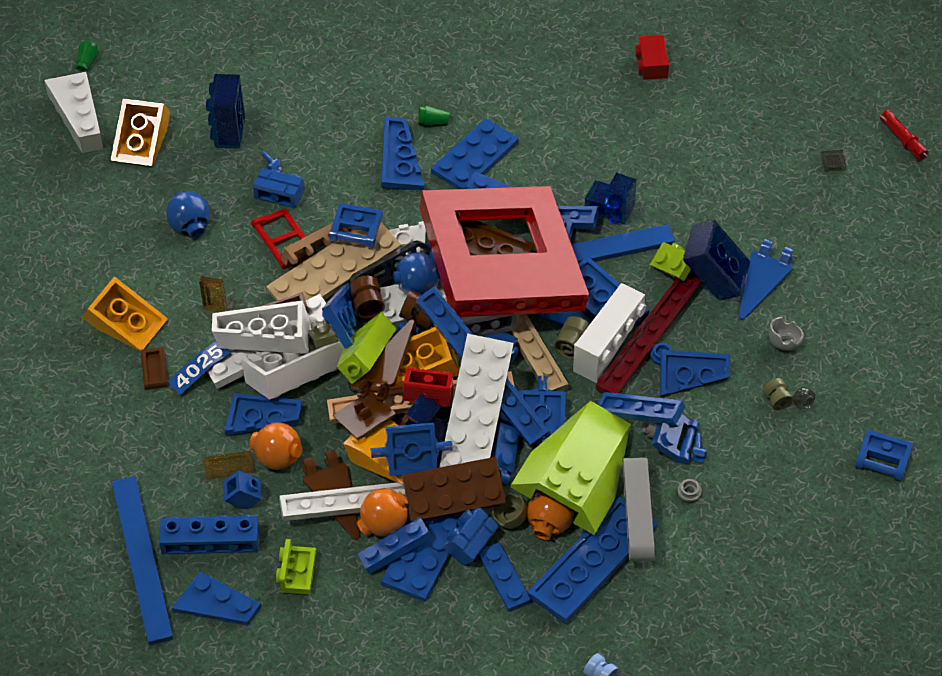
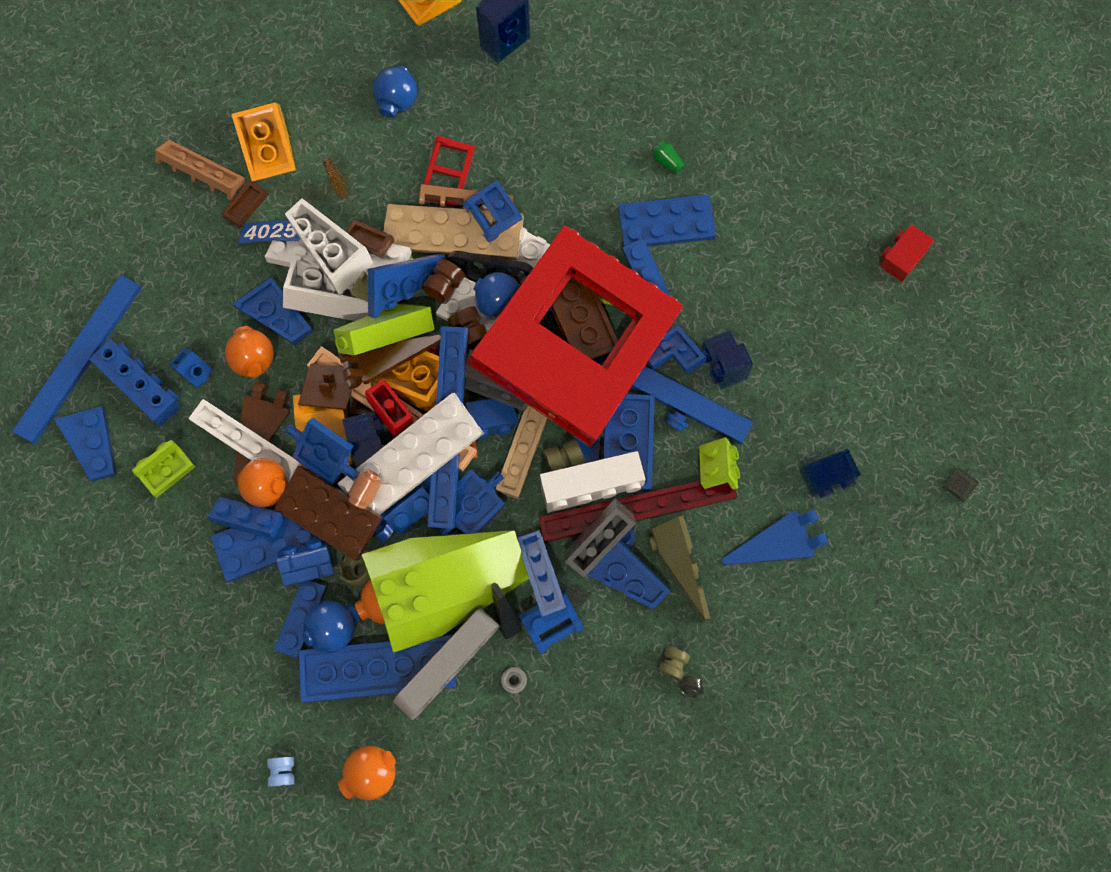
camera: 45 degrees right, 20 degrees up
(91, 370) = (199, 168): none -> medium nougat hinge
(227, 464) = (209, 333): clear orange tile -> none
(273, 163) = (504, 101): blue hand -> none
(278, 187) = (485, 124): blue brick -> none
(399, 157) = (600, 177): blue wing -> none
(467, 444) = (364, 488): none -> nougat brick
(533, 556) = (330, 626): none -> blue brick
(619, 261) = (676, 420): none -> blue plate
(639, 447) = (504, 614): none -> black slope
(652, 356) = (599, 538): none -> dark grey brick
(661, 614) = (368, 773): none -> orange brick
(698, 453) = (555, 654): blue hand -> none
(710, 331) = (673, 549): none -> olive wedge
(716, 260) = (743, 498): clear blue brick -> none
(749, 214) = (830, 473): none -> clear blue brick
(781, 330) = (739, 604): light grey hair -> none
(887, 449) = (710, 798): blue plate -> none
(909, 140) = (1049, 525): red pin -> none

